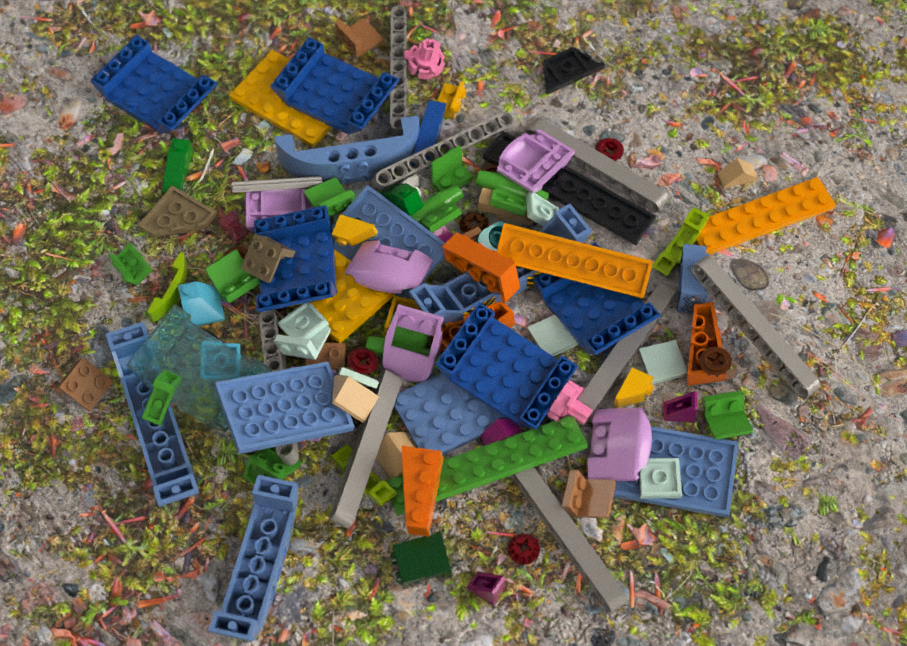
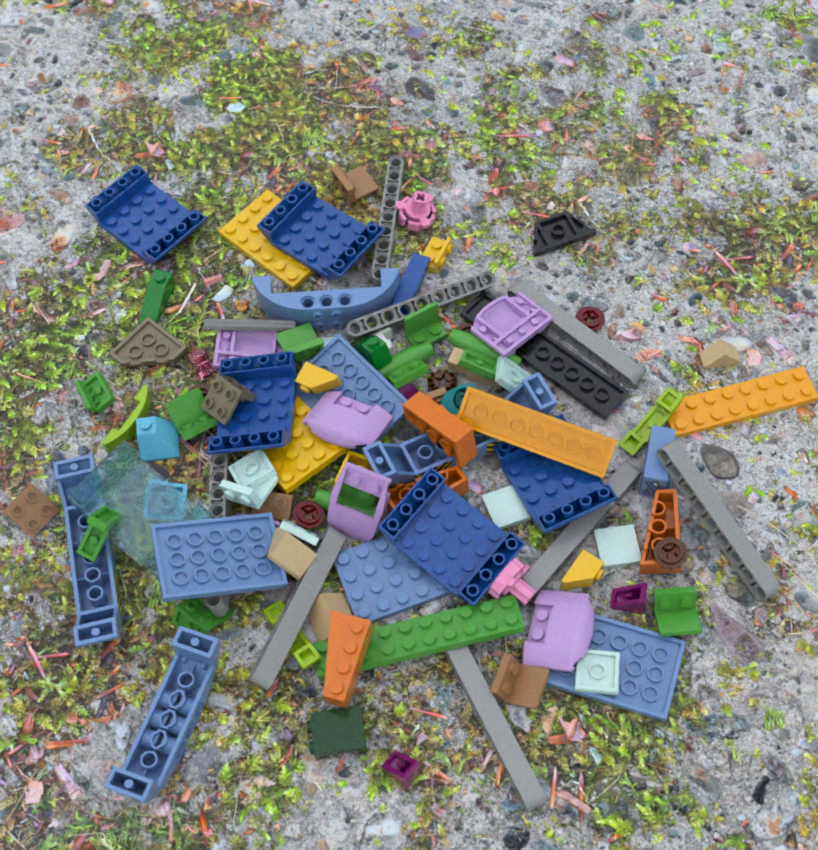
camera: 10 degrees right, 0 degrees up
(499, 431) = (438, 602): magenta slope -> none
(527, 557) = (448, 740): dark red gear -> none

